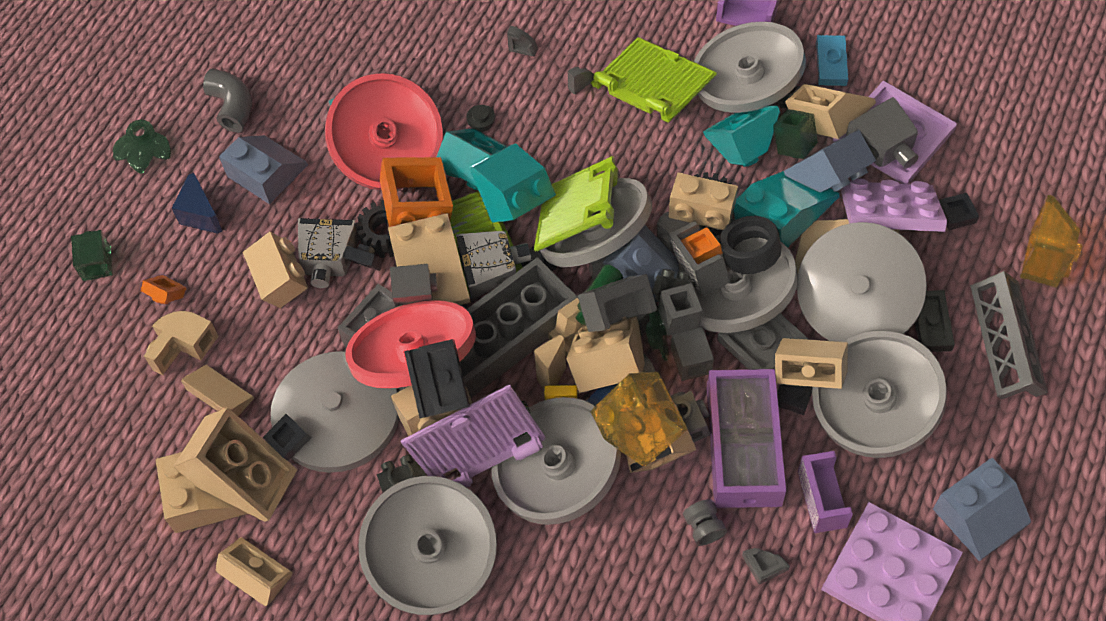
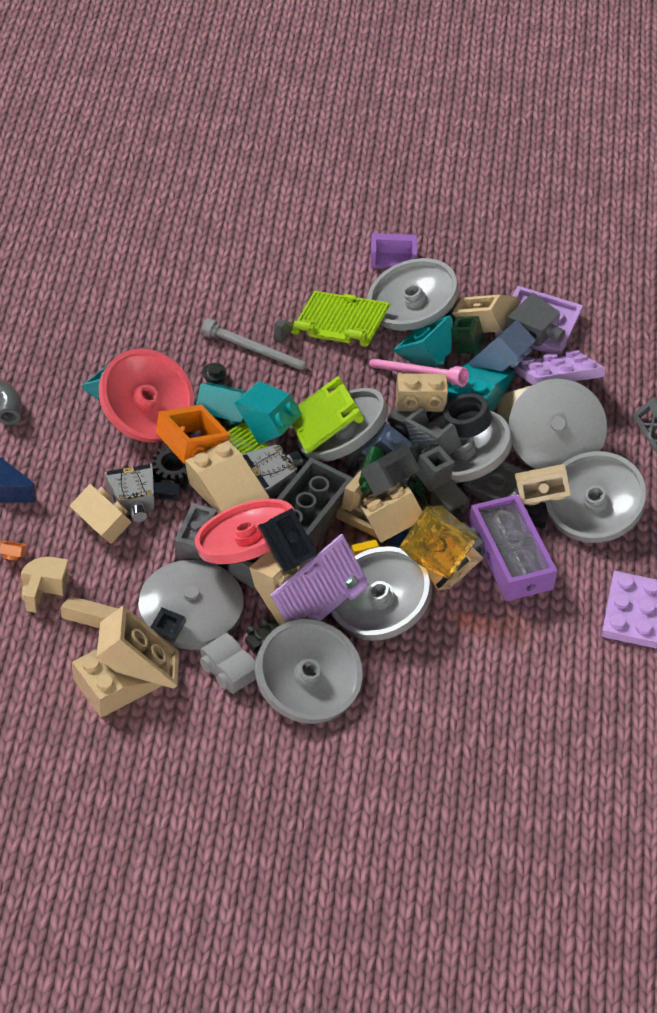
camera: 25 degrees left, 10 degrees down
(252, 571) = (176, 727): tan slope -> none
(261, 166) = (49, 445): sand blue slope -> none
(342, 504) = (229, 663): none -> light grey brick
(412, 284) = (225, 493): dark grey brick -> none
(498, 61) = (212, 329): none -> light grey piece
(521, 42) = (224, 311): dark grey tile -> none
(550, 361) = (348, 524): tan slope -> none
(702, 245) = (433, 421): orange plate -> none
(704, 522) = (504, 610): dark grey wheel -> none
(753, 189) = (457, 375): none -> bright pink piece
(764, 564) = (555, 629): dark grey tile -> none
(823, 492) = (578, 572): medium lavender panel -> none
(832, 60) = (472, 278): dark azure plate -> none
(934, 323) = (617, 442): pearl dark grey plate -> none
(959, 211) = (610, 364): black plate -> none

